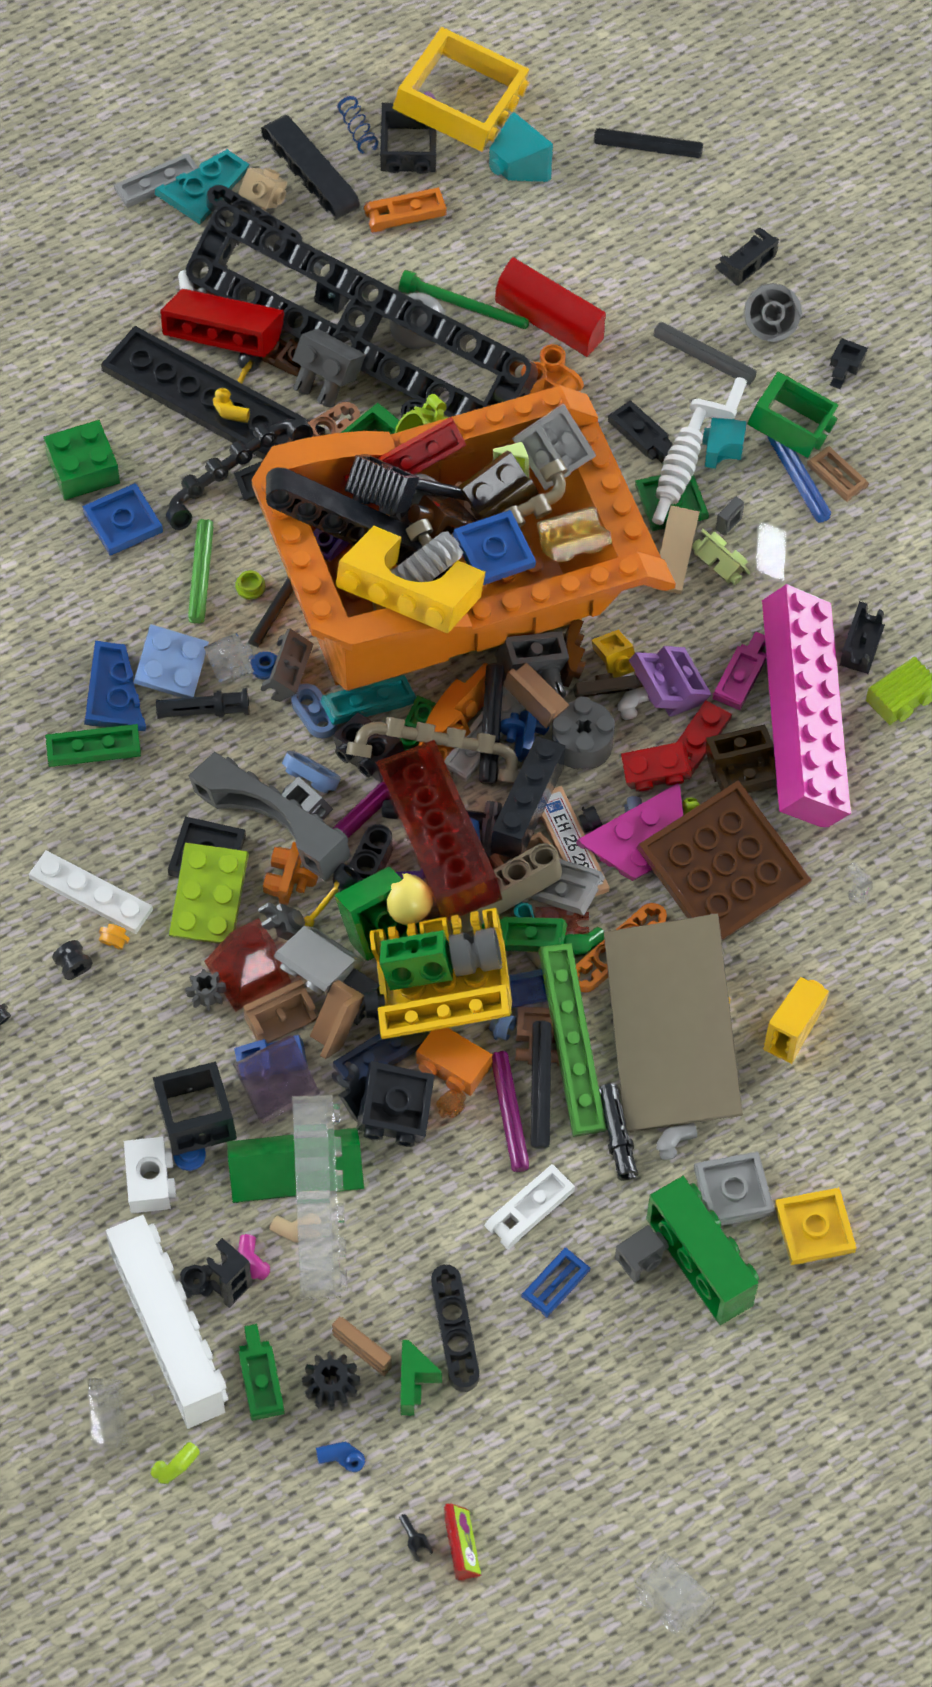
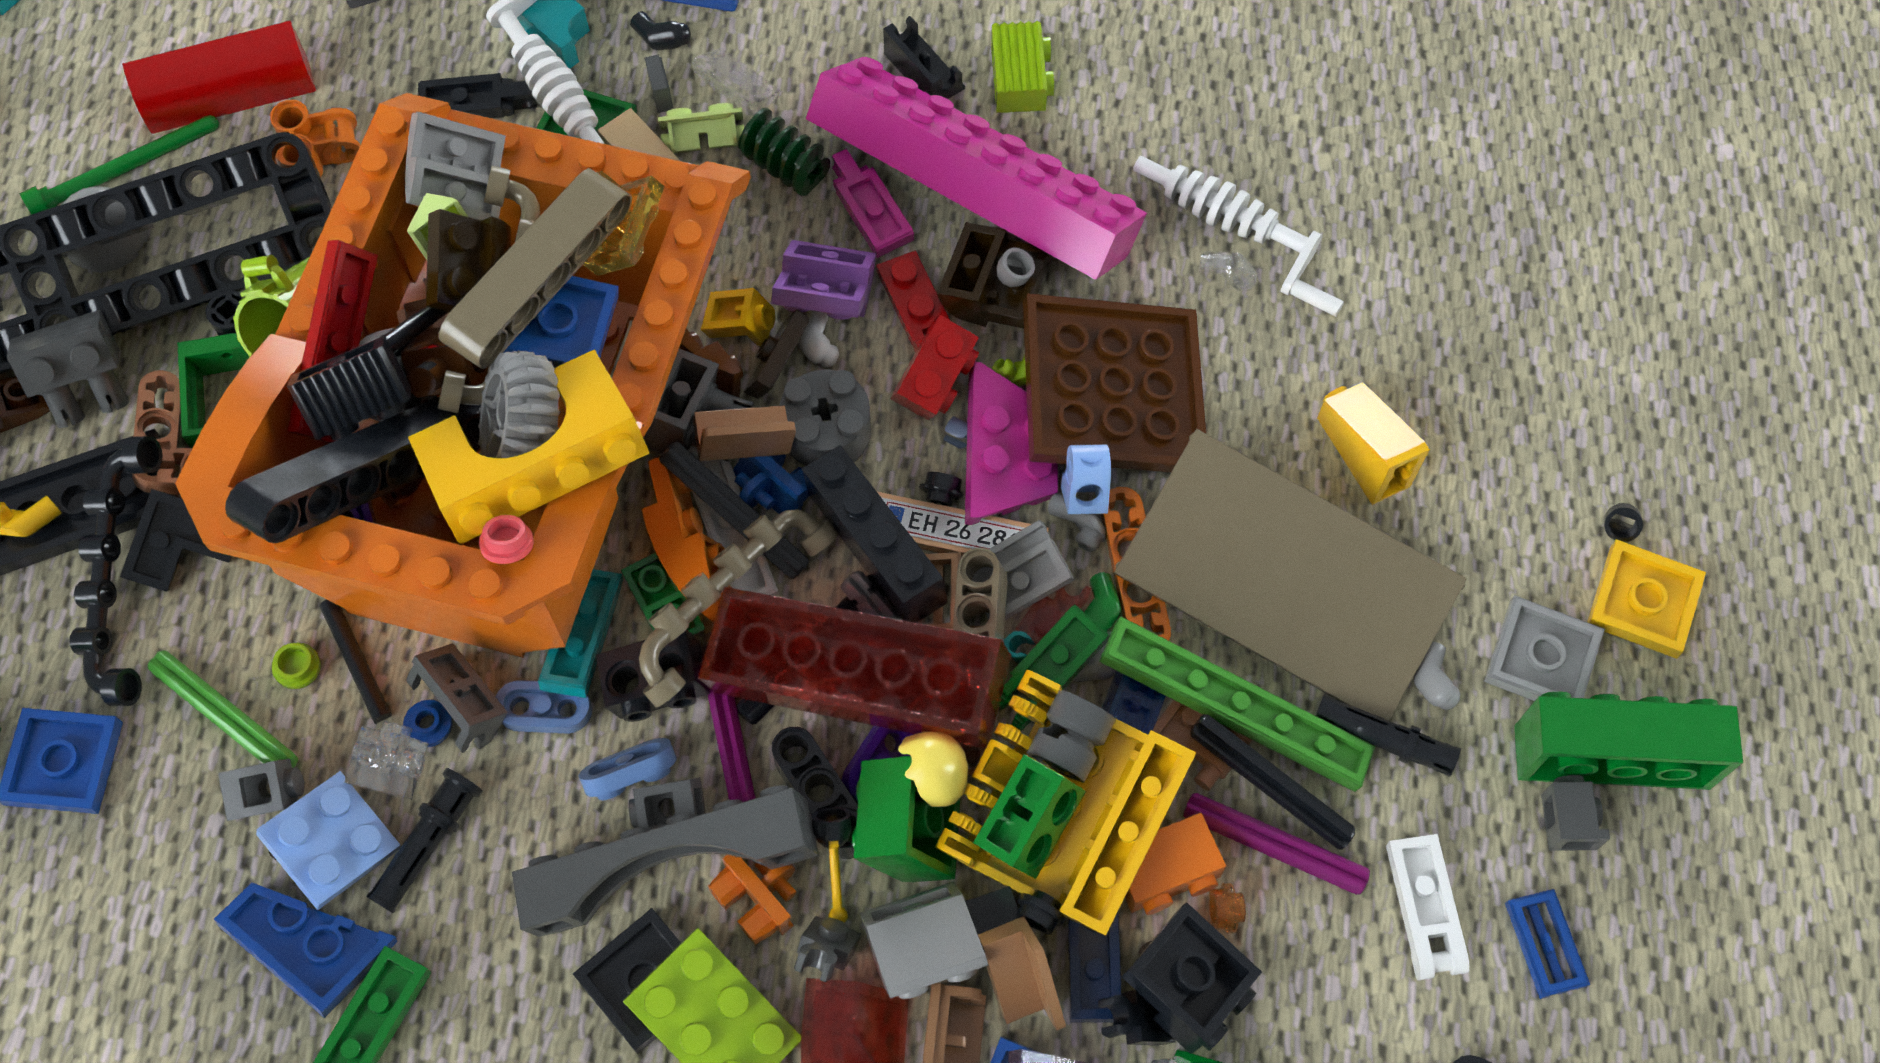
camera: 55 degrees left, 5 degrees up
(176, 615) = (246, 791): none -> dark grey brick
(350, 601) = (505, 539): none -> coral plate
(509, 515) = (535, 268): none -> dark tan beam
(631, 899) = (1090, 526): none -> light grey arm
(651, 877) = (1087, 471): none -> light blue leg
(737, 606) = (783, 152): none -> dark green piece
(754, 761) = (1012, 263): none -> light grey hinge
(766, 496) = (660, 35): none -> black arm
(852, 1188) = (1619, 529): none -> black hinge
(900, 864) = (1250, 219): none -> white piece

